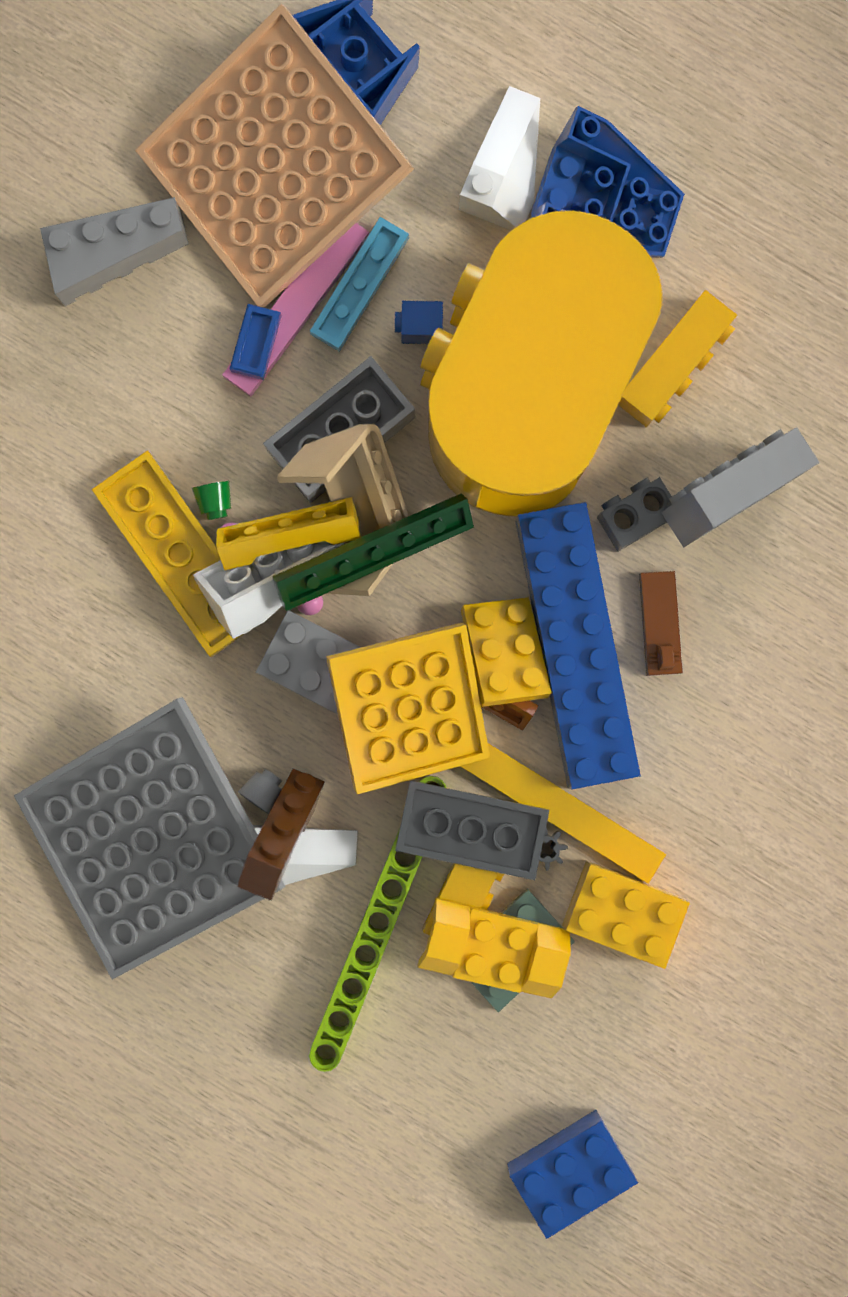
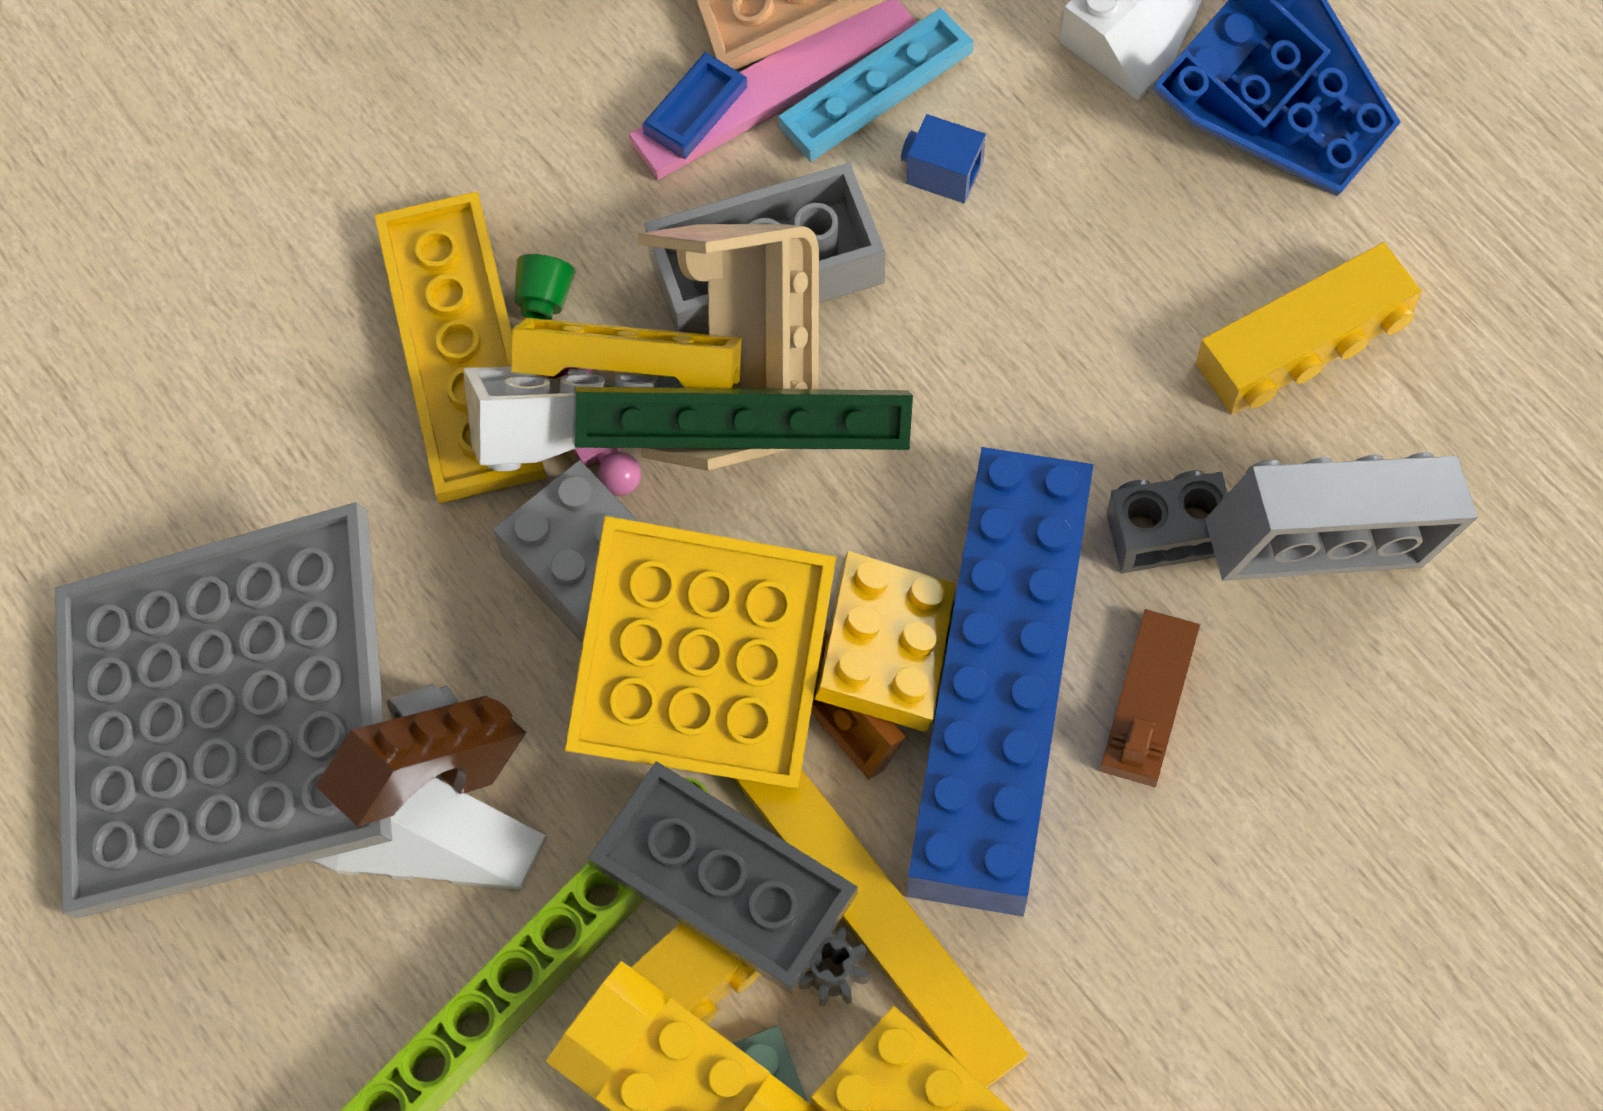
camera: 25 degrees right, 20 degrees down
(537, 359) = (1086, 238): yellow brick -> none

